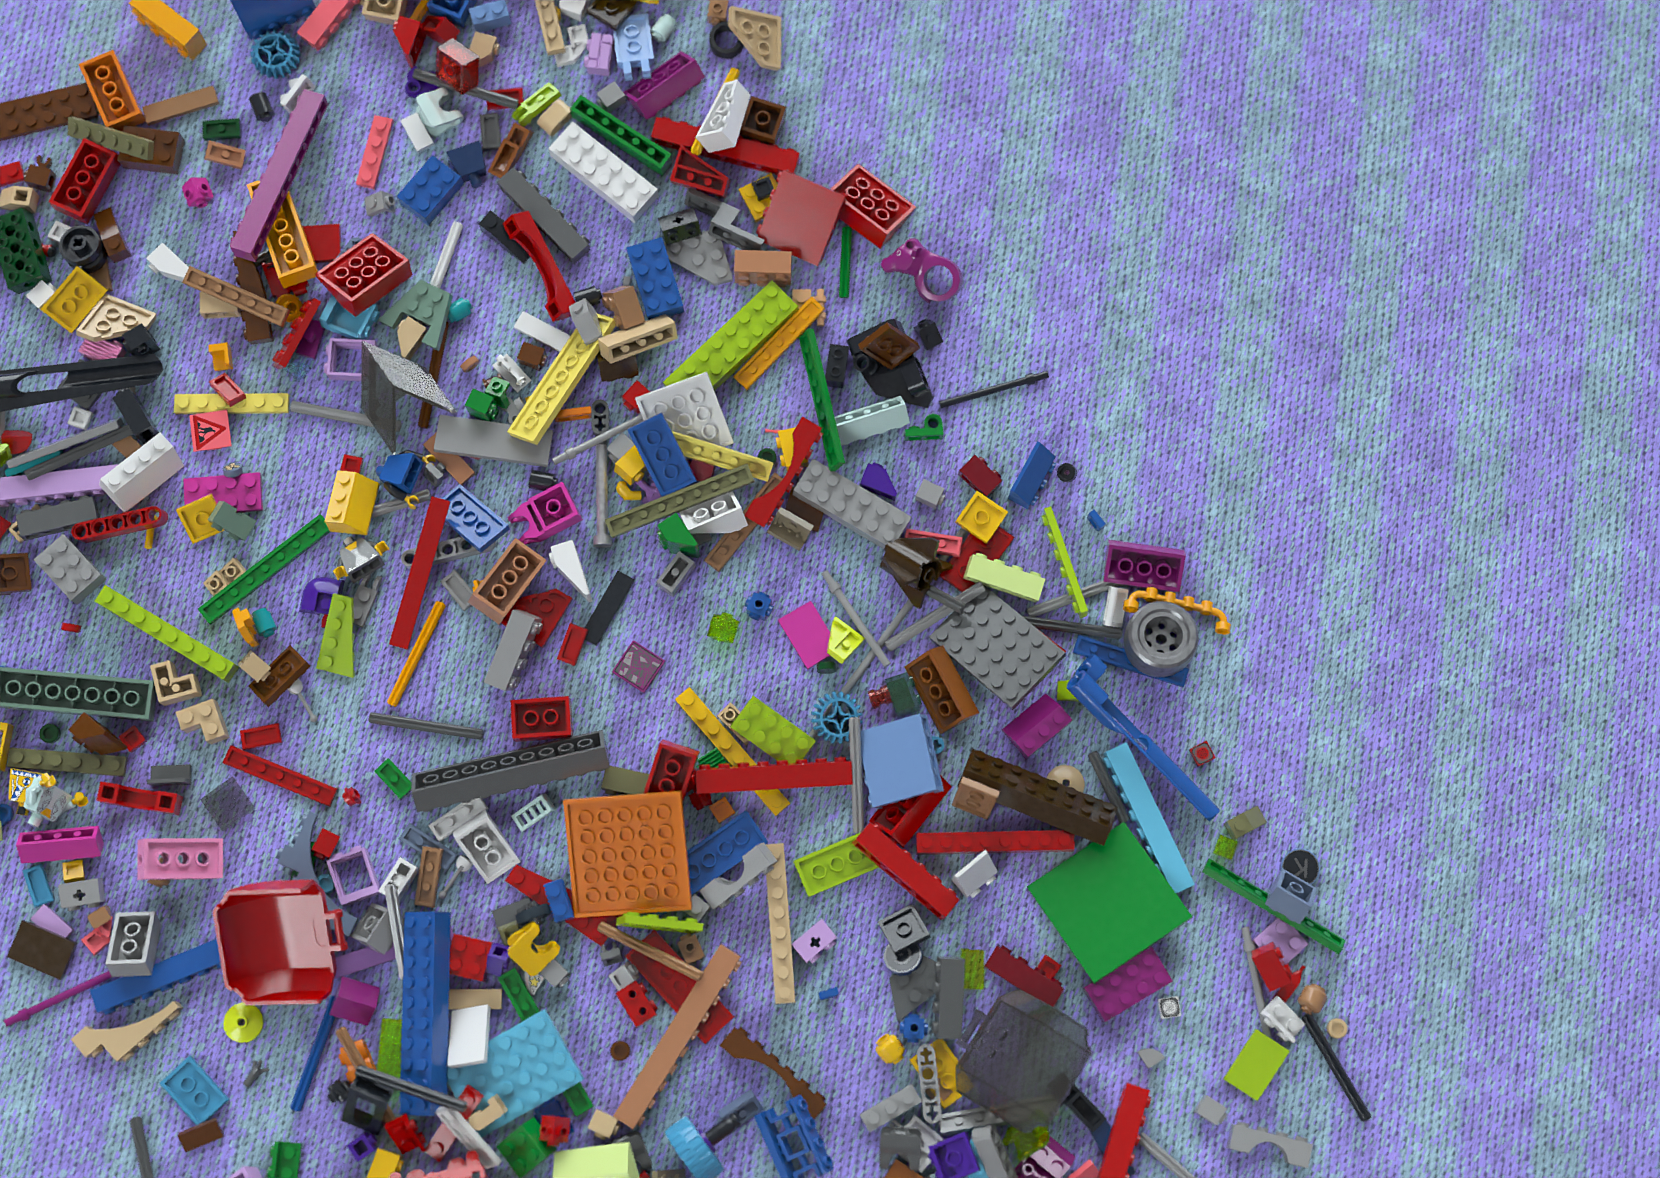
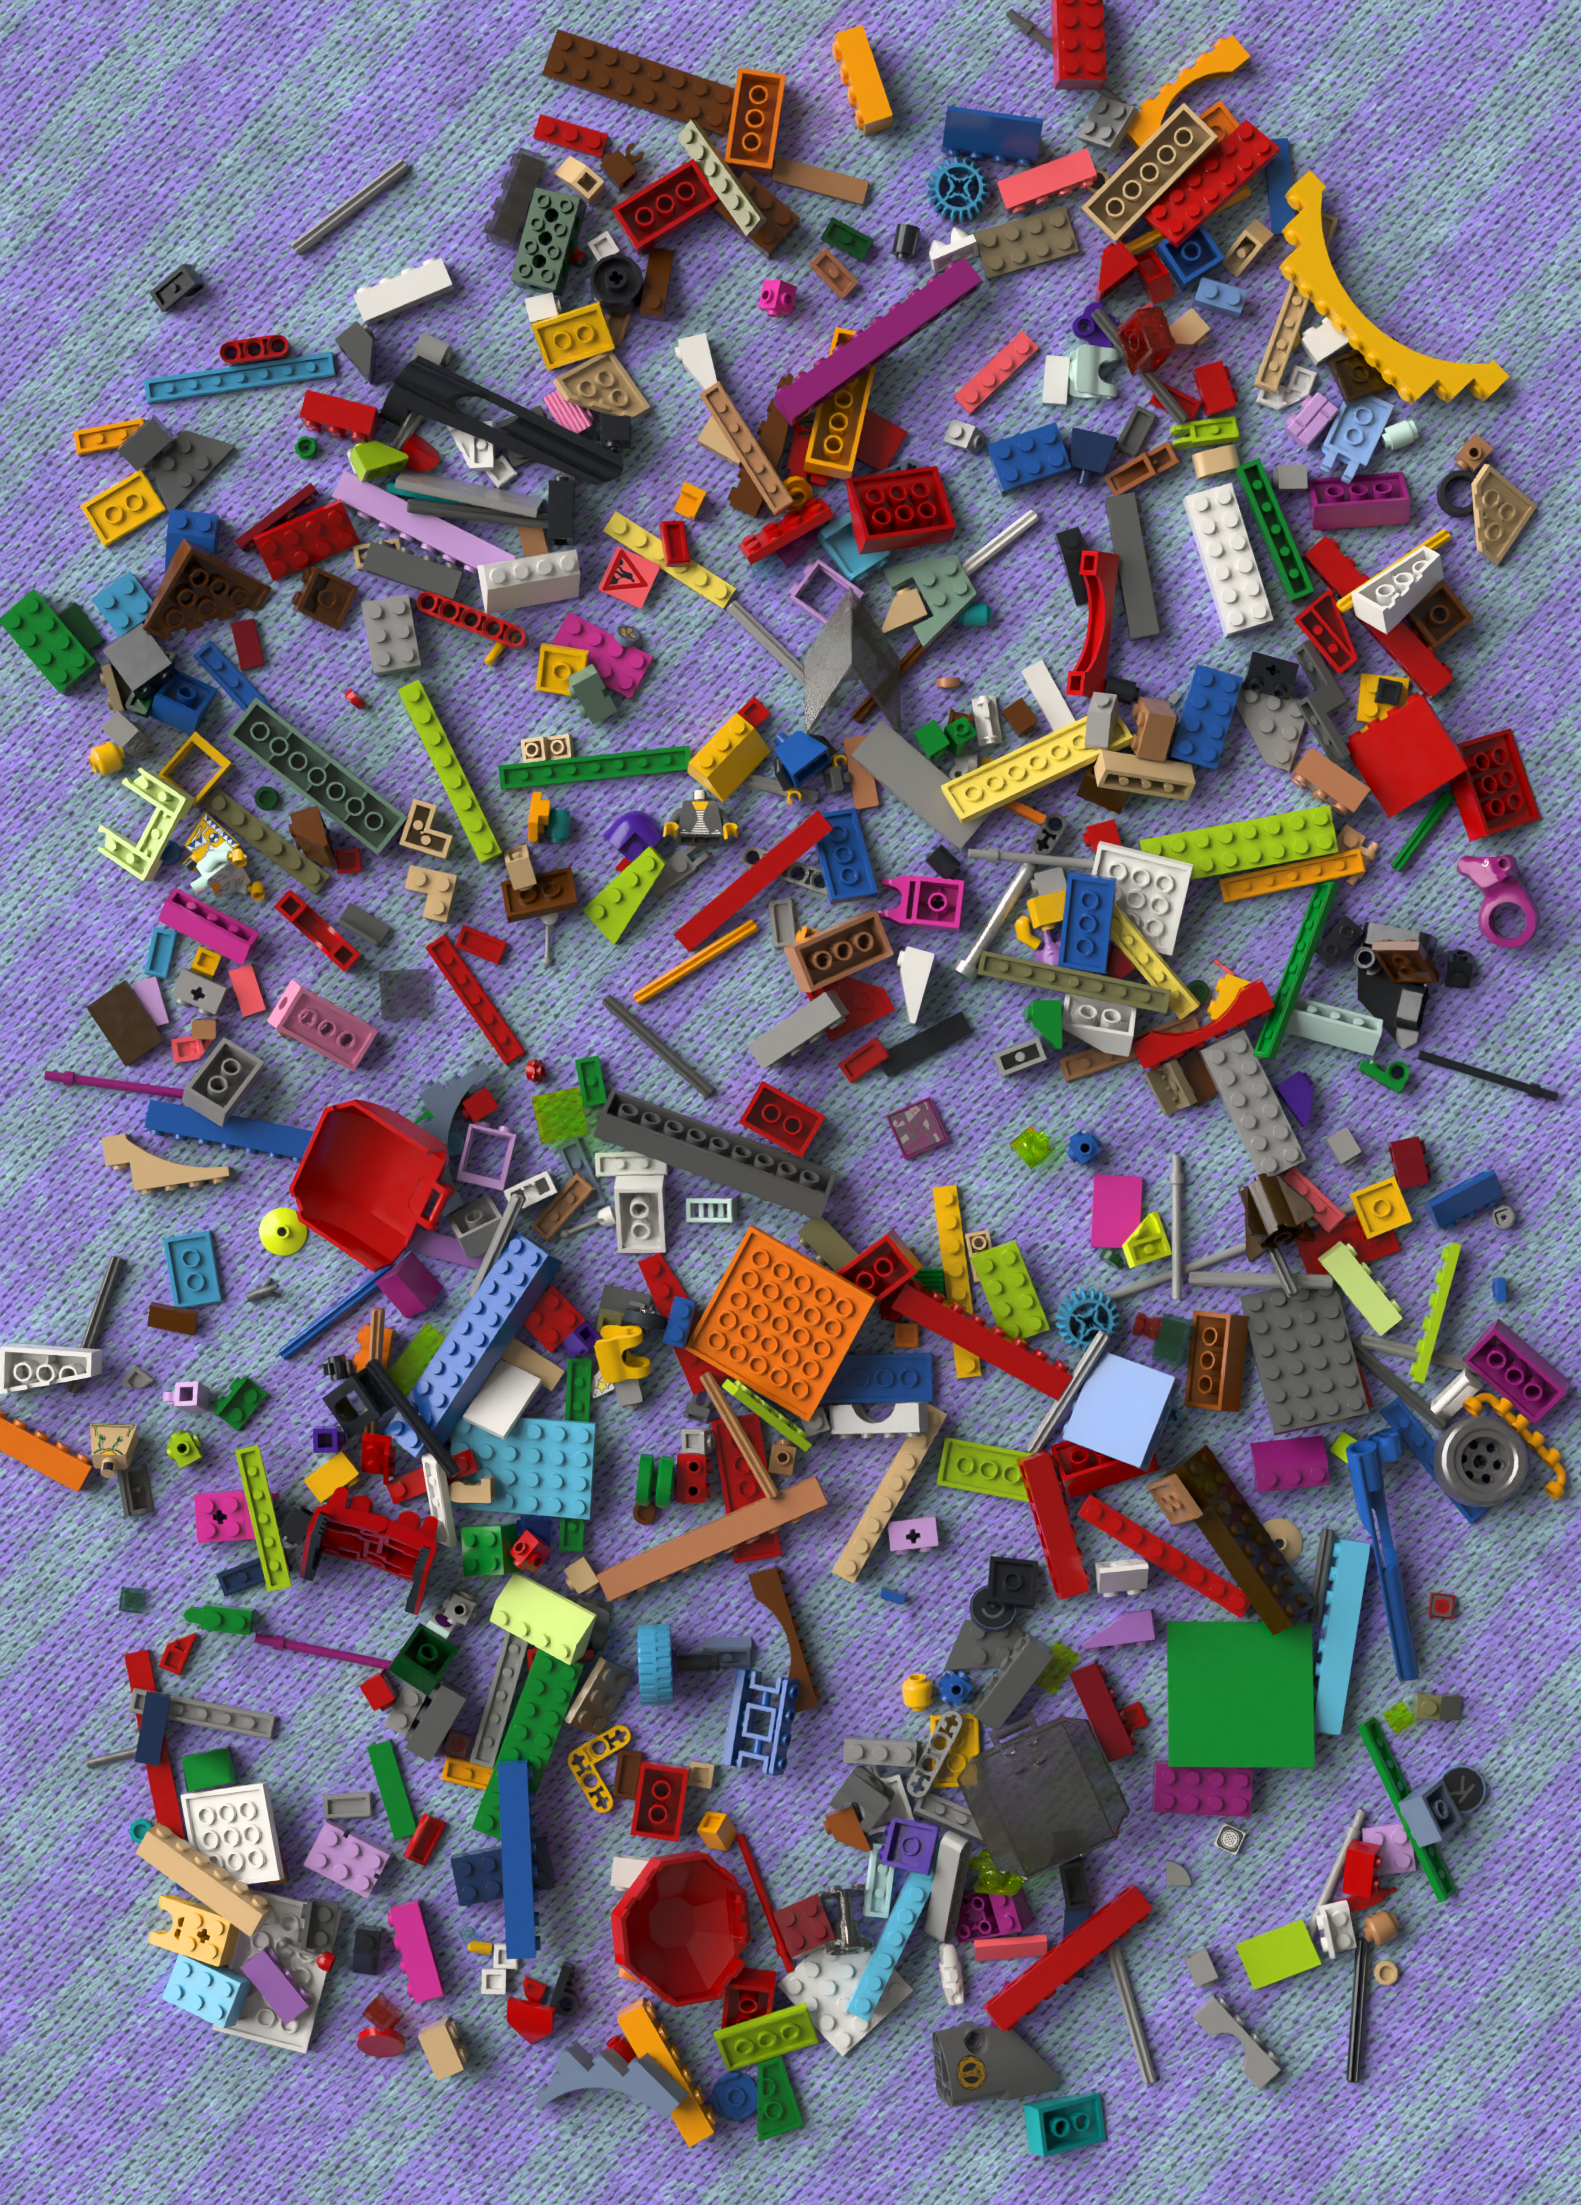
camera: 35 degrees right, 10 degrees up
(53, 413) = (477, 452): none -> white wing
(115, 872) = (247, 990): none -> coral tile
(342, 60) = (1026, 243): none -> dark tan plate
(387, 814) = (560, 1115): none -> clear neon green brick
(524, 73) = (1215, 388): none -> red brick
(614, 1021) = (655, 1481): none -> green wheel
(1004, 906) = (1127, 1628): none -> medium lavender slope

